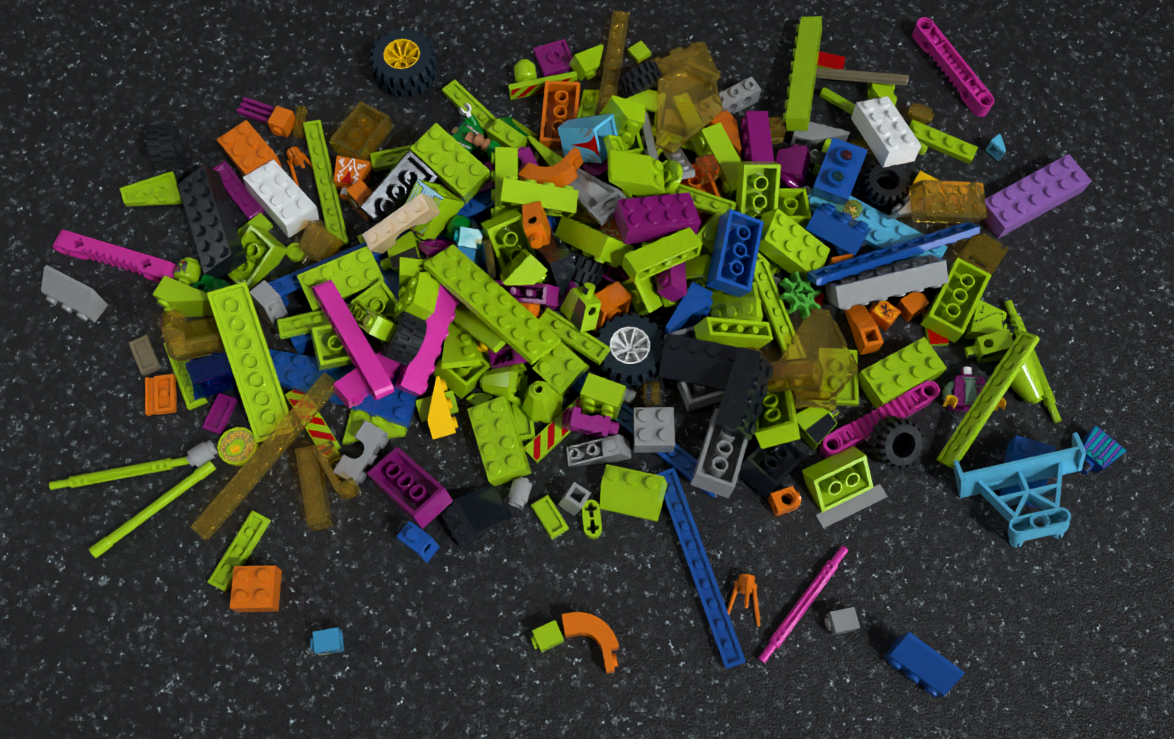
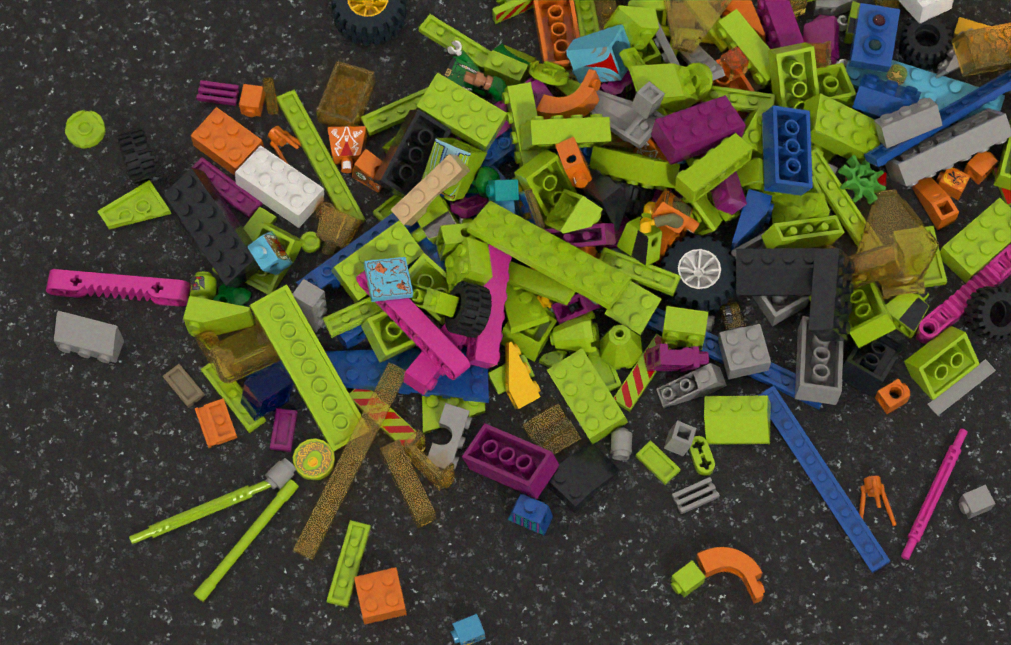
camera: 10 degrees left, 0 degrees up
(135, 118) = (85, 129): none -> lime tile
(247, 253) = (269, 251): none -> medium azure torso
(337, 295) = (388, 279): none -> medium azure tile
(459, 466) = (551, 430): none -> clear yellow slope
(539, 145) = (549, 73): none -> lime tile
(578, 555) = (713, 496): none -> light grey tile
(612, 288) = (668, 212): none -> torso
(616, 182) = (647, 100): none -> light grey panel
(788, 176) = (822, 53): none -> clear yellow panel
(853, 251) = (908, 122): none -> light grey brick

